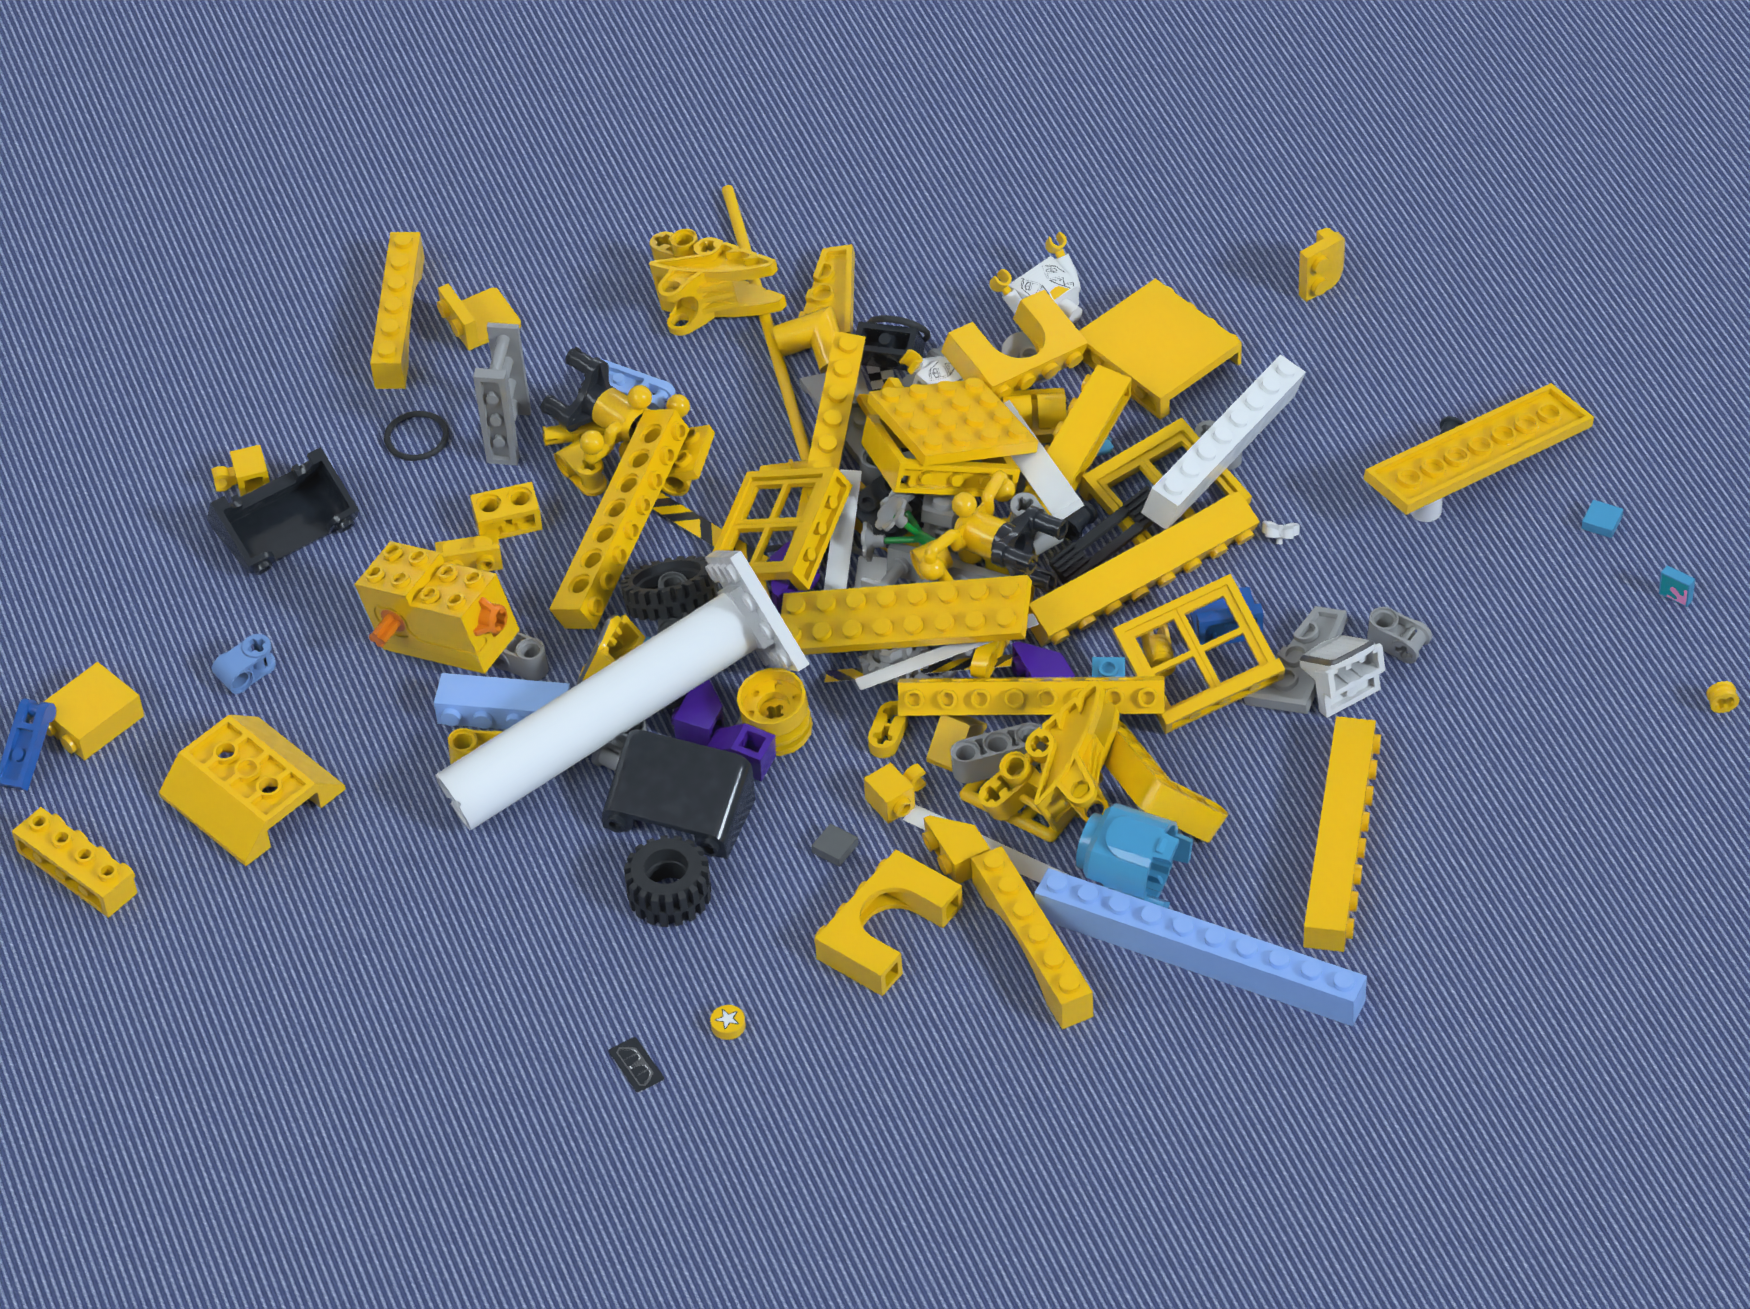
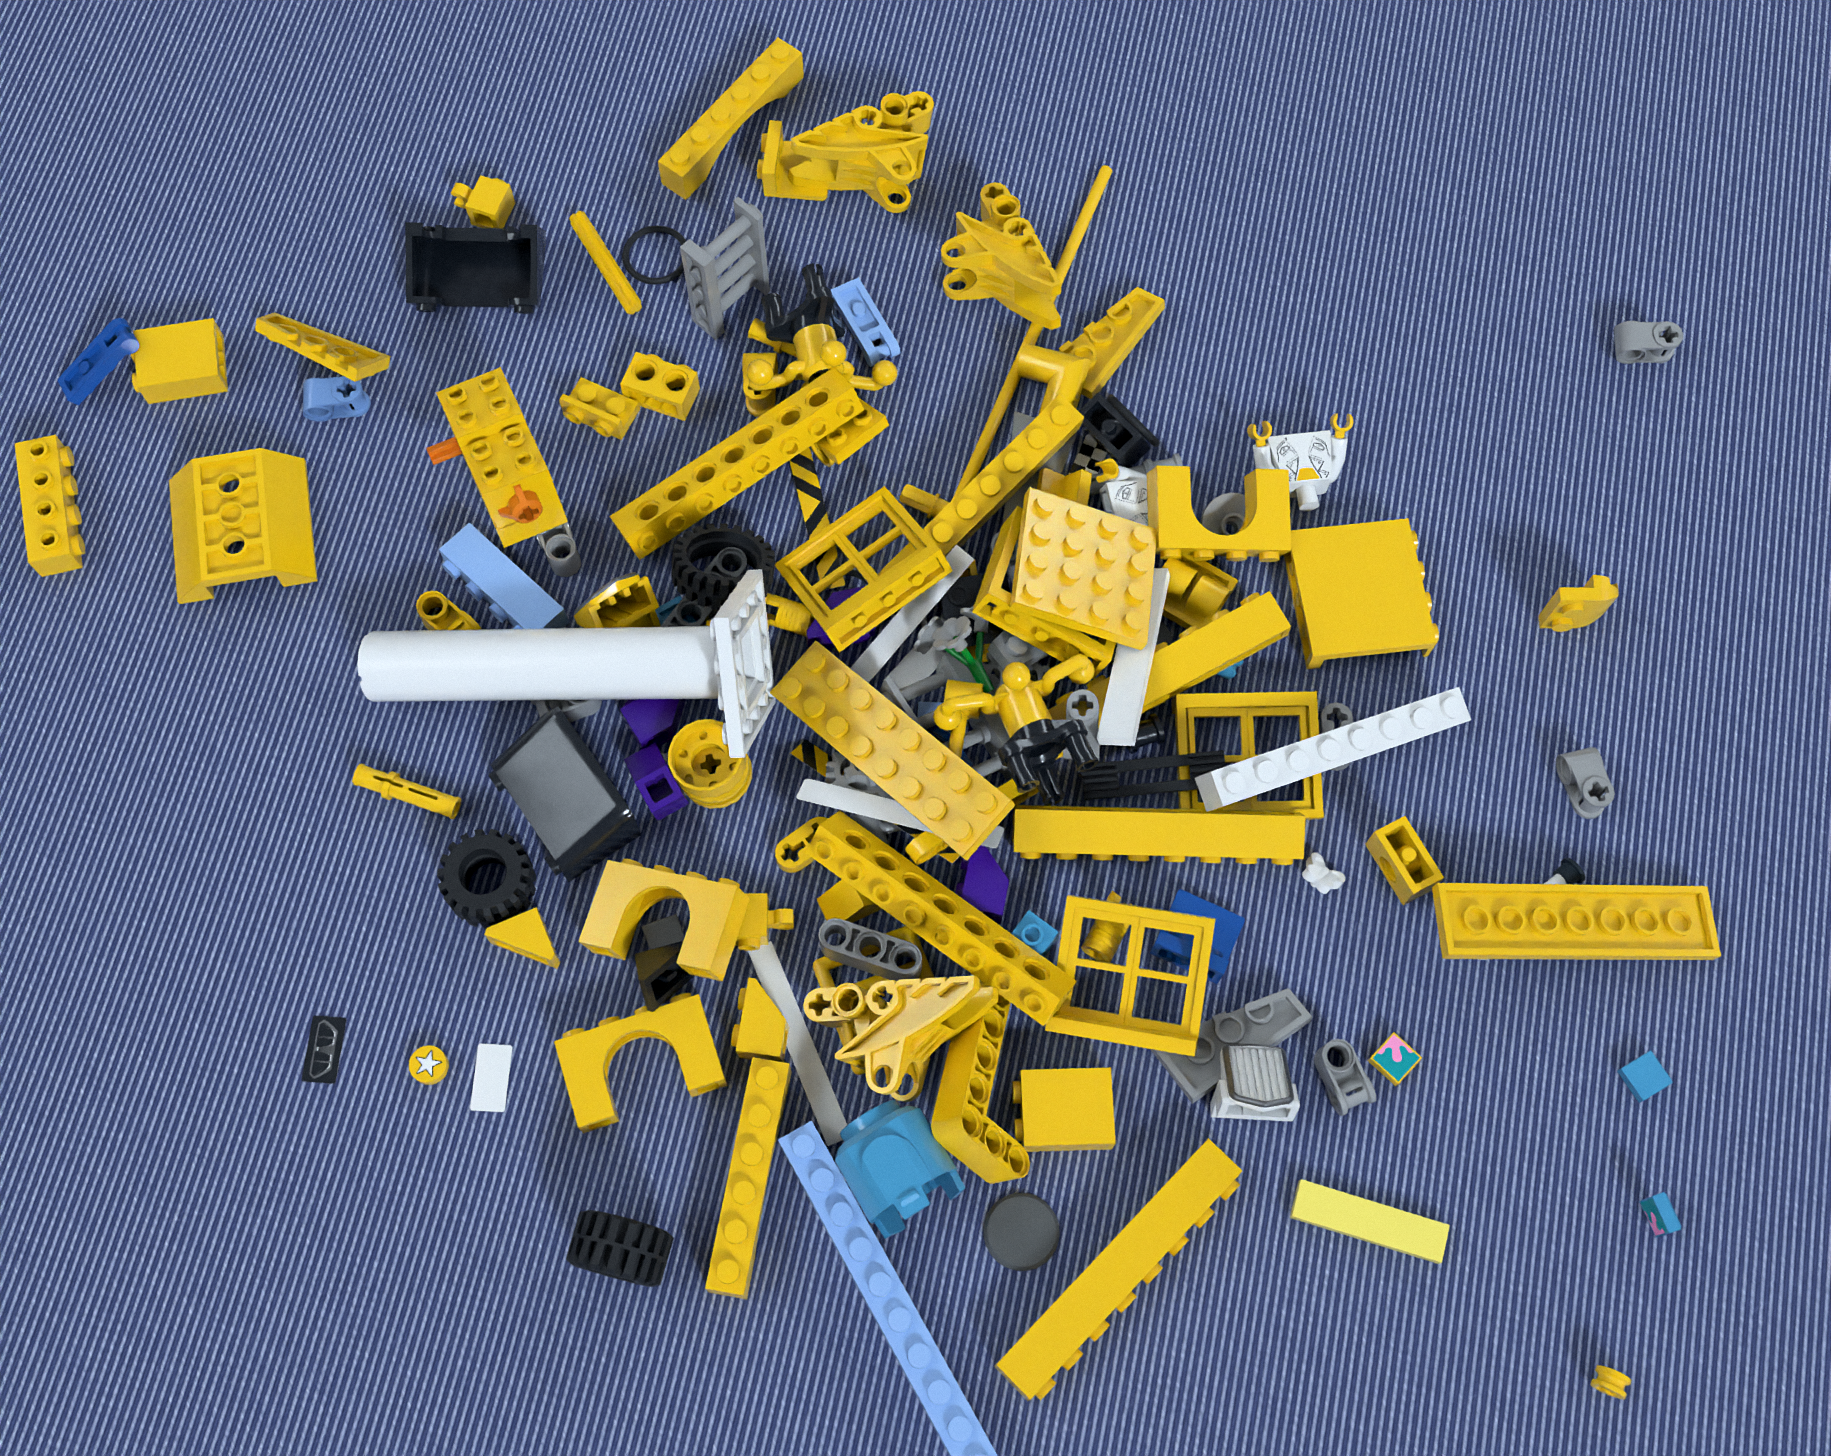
camera: 30 degrees right, 20 degrees up
(186, 640) = (323, 347): none -> yellow wing
(381, 460) = (605, 262): none -> yellow axle
(536, 874) = (392, 786): none -> yellow pin
(538, 271) = (866, 156): none -> yellow piece
(732, 901) = (526, 936): none -> yellow slope
(781, 1005) = (491, 1077): none -> white sticker
(786, 820) = (631, 889): none -> yellow arch
(853, 858) = (660, 974): none -> black slope
(979, 1018) = (620, 1248): none -> black tyre
(1223, 764) = (1064, 1109): none -> yellow brick
(1232, 80) = (1643, 341): none -> light grey piece
(1253, 861) = (1021, 1231): none -> dark grey piece
(1330, 484) = (1404, 860): none -> yellow brick
(1414, 367) = (1585, 780): none -> light grey piece
(1425, 607) = (1394, 1059): none -> tile
(1487, 709) = (1370, 1221): none -> light yellow tile

